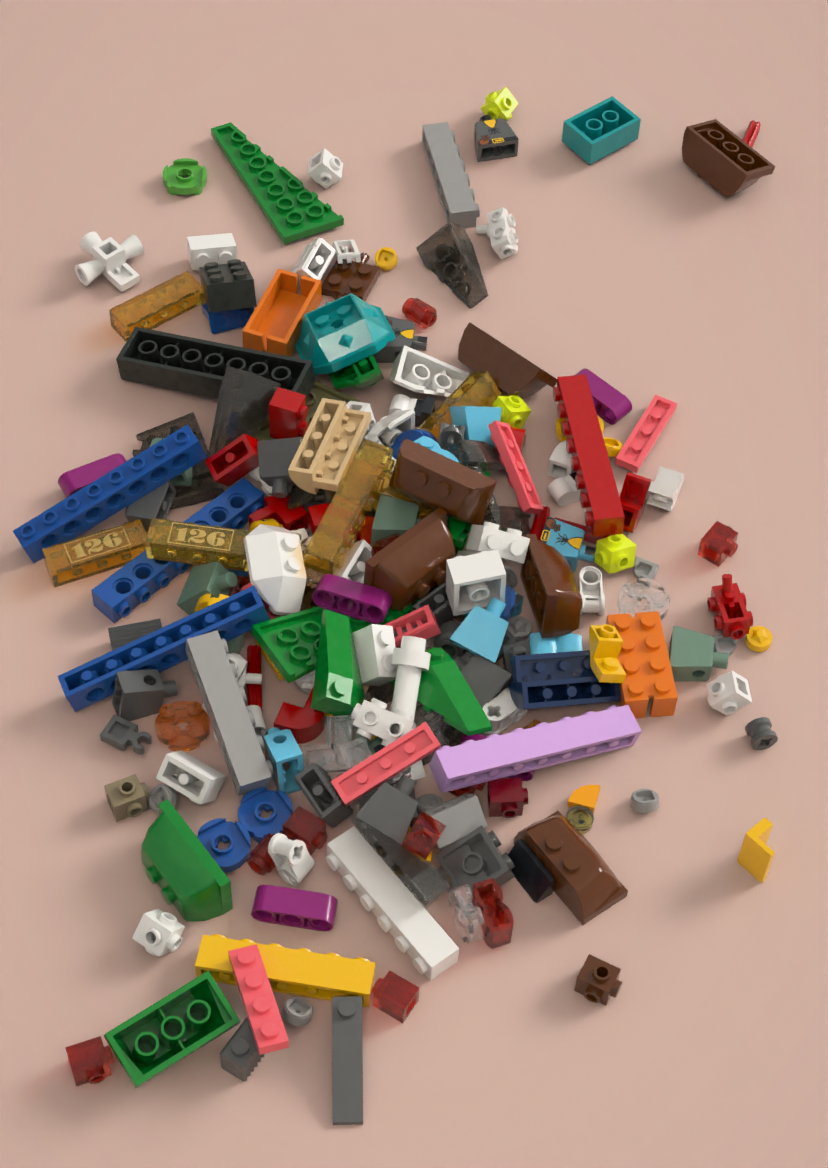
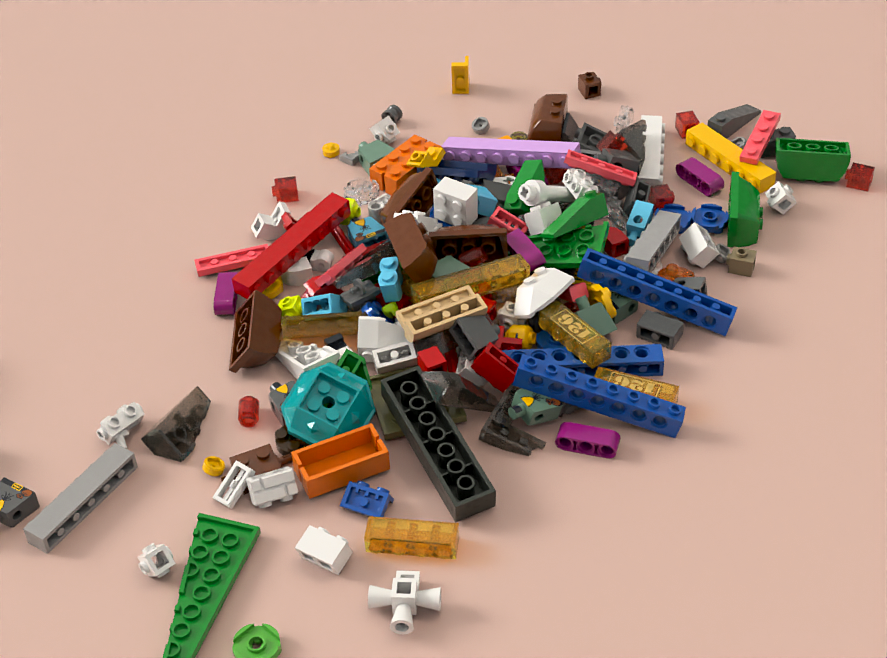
camera: 130 degrees left, 10 degrees down
(122, 733) = (716, 290): dark grey plate -> none
(227, 286) = (355, 496): pearl dark grey brick -> none
(259, 859) = (690, 200): clear red brick -> none
(290, 858) = (682, 184): white piece -> none
(497, 916) = (606, 118): clear red brick -> none
(729, 609) = (329, 159): red brick -> none

